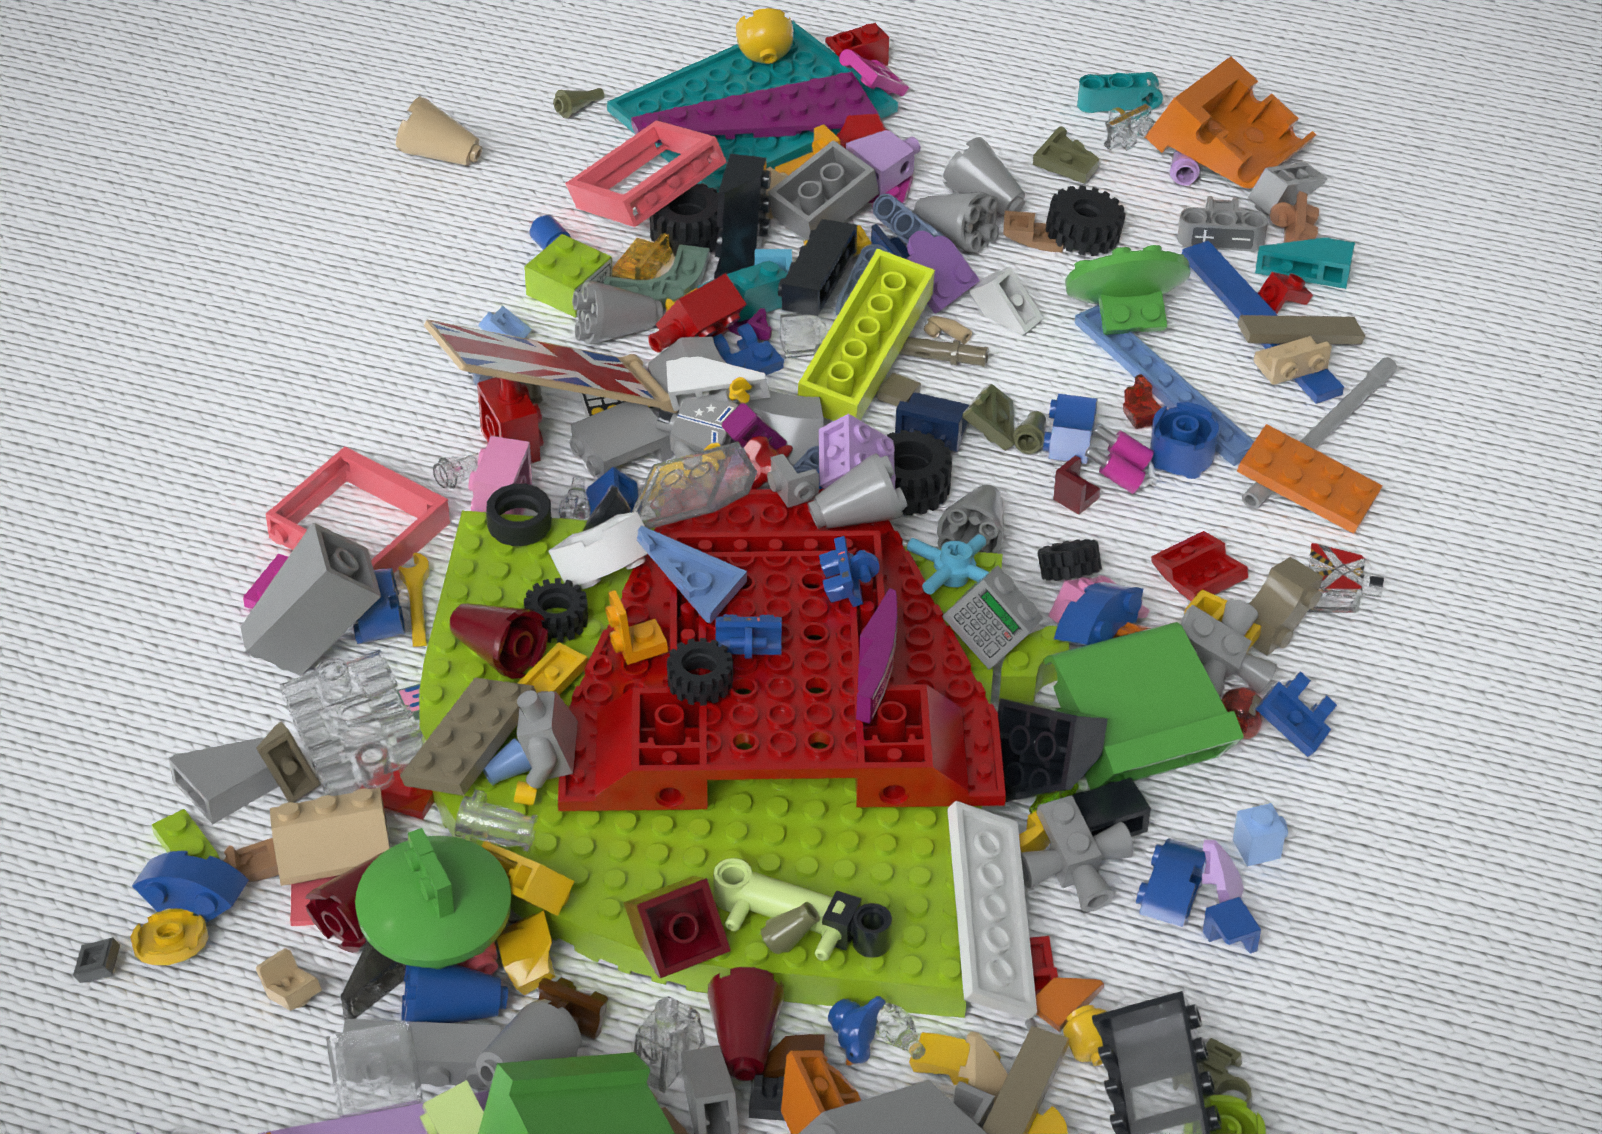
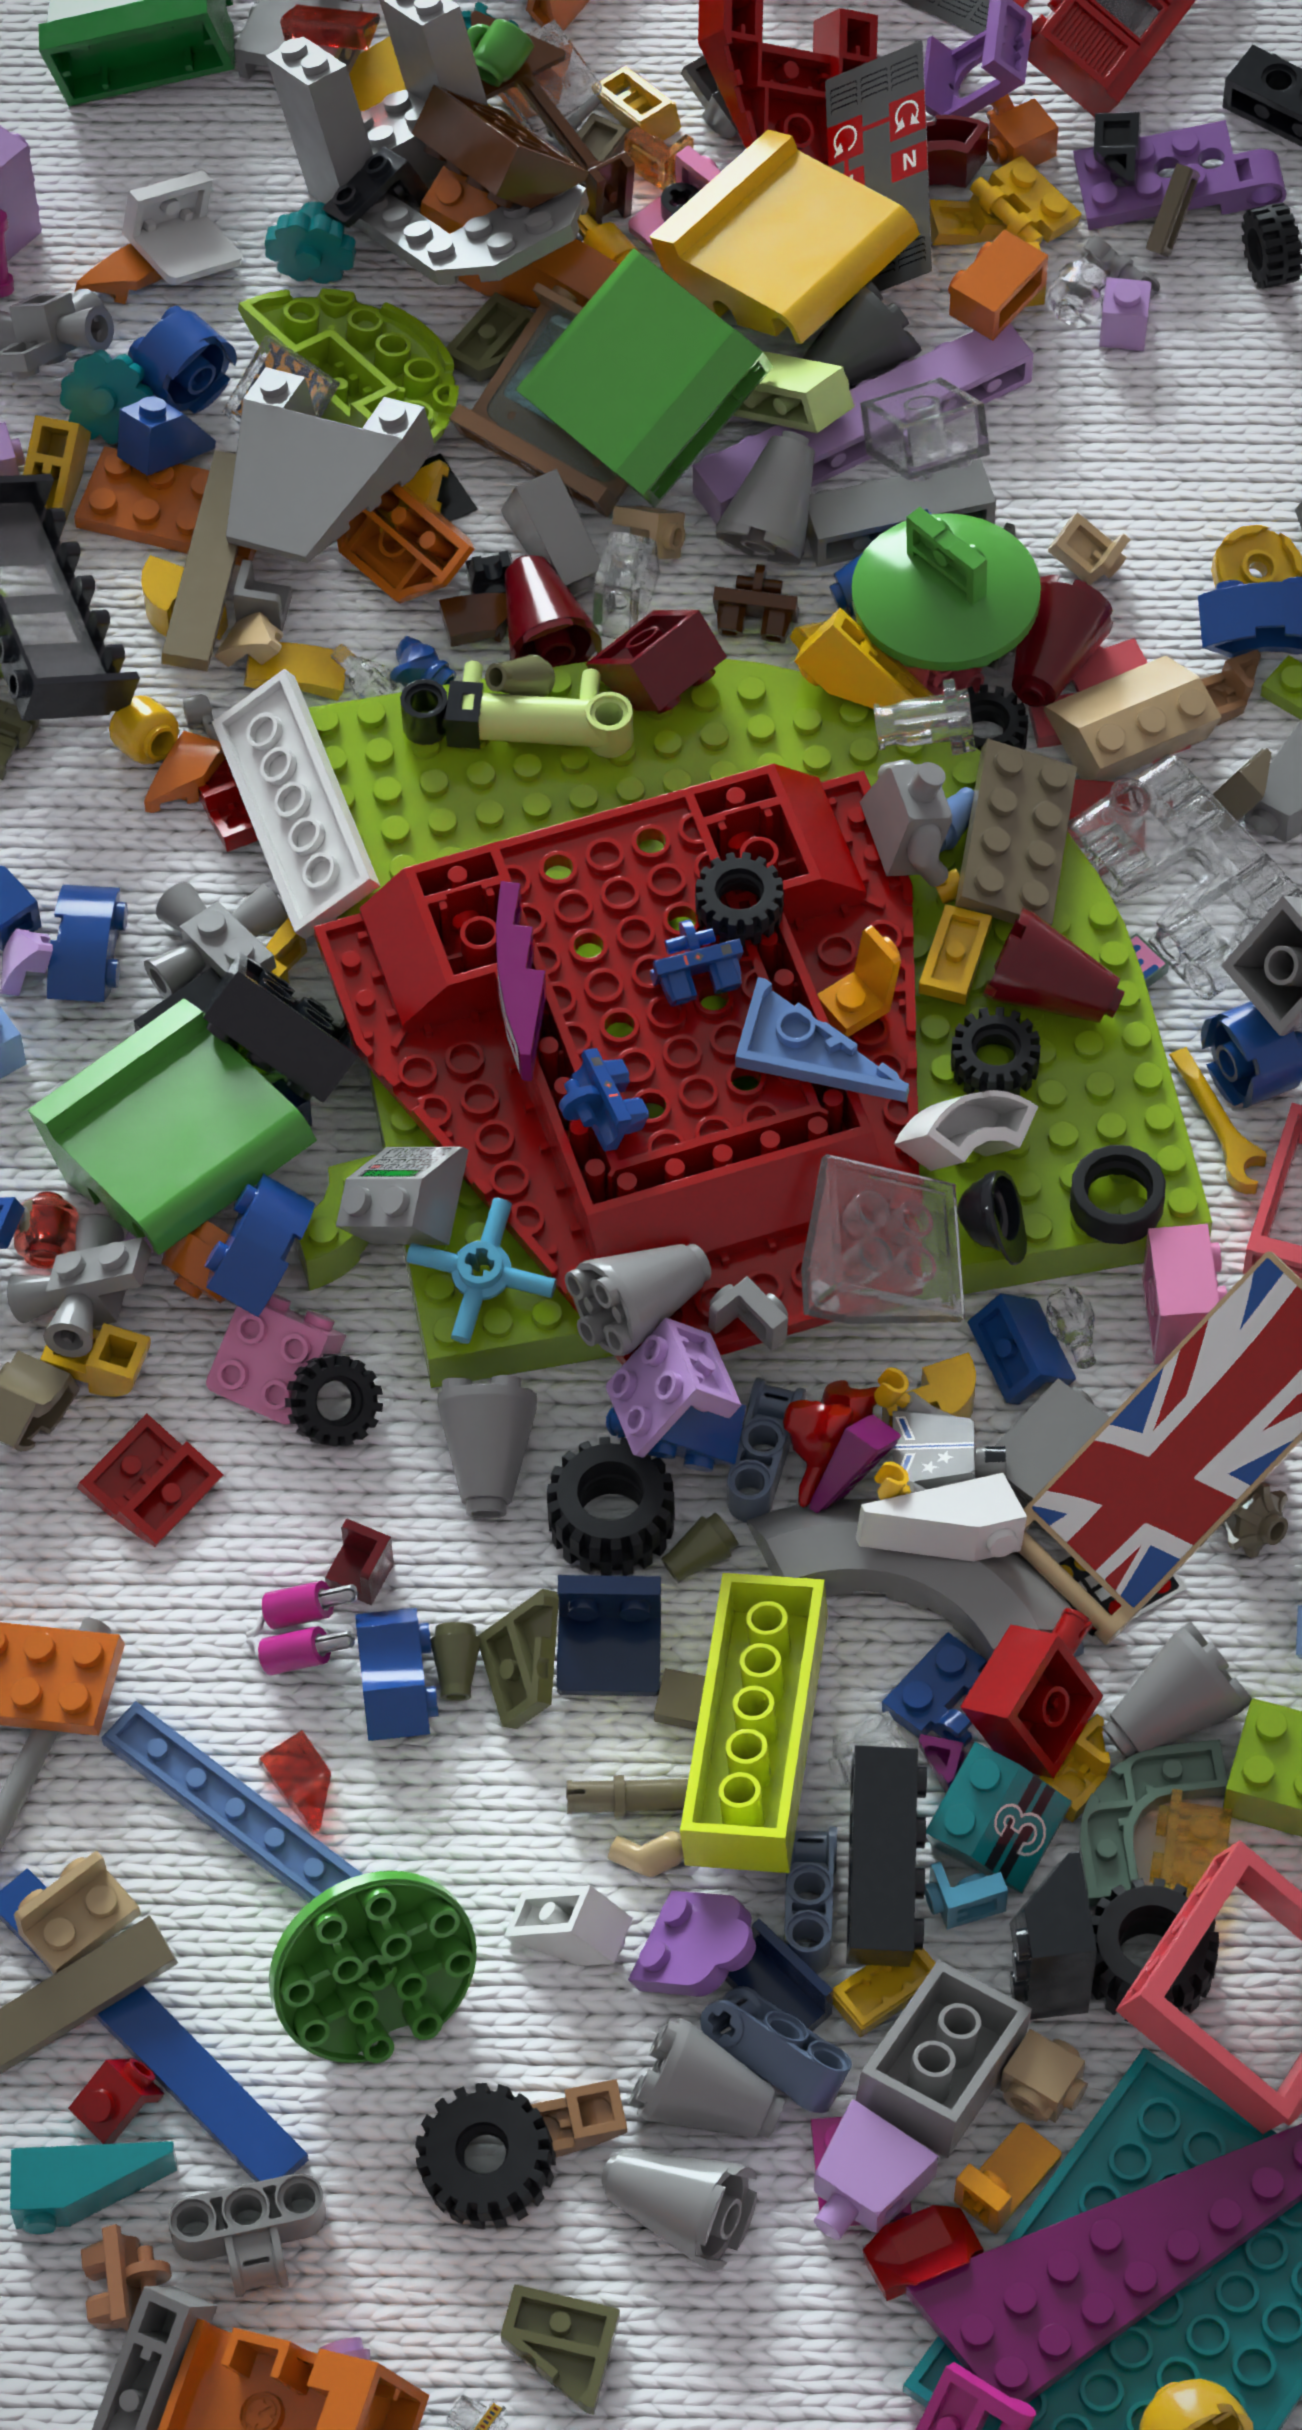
camera: 165 degrees right, 15 degrees up
(1184, 439) = (196, 1702): blue brick -> none

